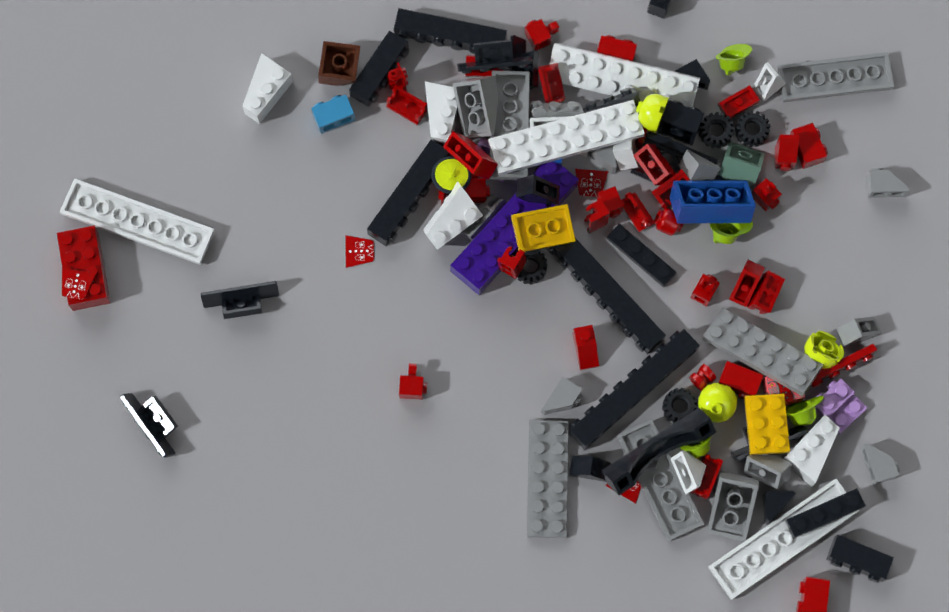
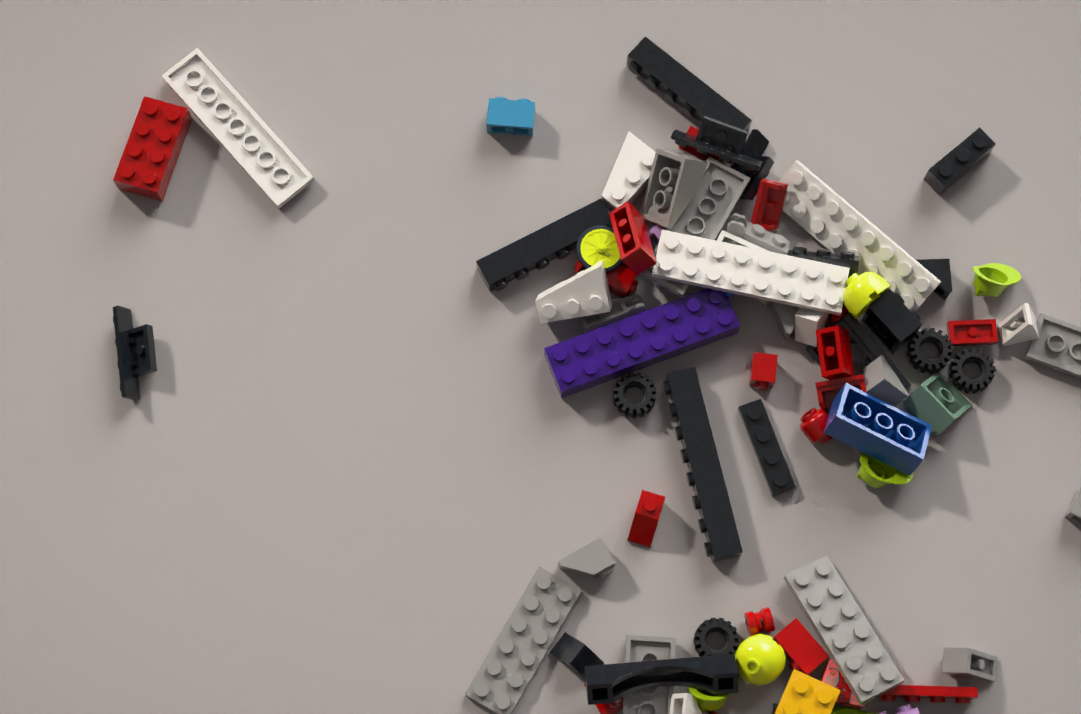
camera: 30 degrees right, 0 degrees up
(76, 283) = (132, 160): red sticker -> none
(240, 300) = (299, 269): black bracket -> none
(266, 88) = (452, 53): white wedge -> none
(338, 63) = (545, 64): copper slope -> none
(358, 251) = (456, 281): red sticker -> none
(375, 73) = (588, 92): black brick -> none
(398, 77) = (601, 113): red hinge -> none
(406, 105) = (596, 148): red hinge -> none
(412, 386) = (430, 459): red brick -> none
(512, 265) = (613, 384): red hinge -> none
(537, 190) = (685, 315): black slope -> none
(539, 34) = (786, 142): red brick -> none
(543, 228) = (668, 360): yellow plate -> none
(590, 181) = (755, 336): red sticker -> none
(599, 217) = (739, 381): red hinge -> none
(617, 48) = (865, 202): red brick -> none
(634, 389) = (675, 593): black brick -> none
(637, 211) = (788, 396): red hinge -> none
(705, 289) = (817, 524): red brick -> none
(746, 283) = (869, 541): red slope -> none
(766, 195) = (946, 453): red brick -> none
(766, 292) = (885, 564): red hinge -> none
(786, 152) = (995, 416): red slope -> none
(810, 147) = (1026, 422): red brick -> none
(824, 349) = (915, 664): neon yellow cylinder -> none

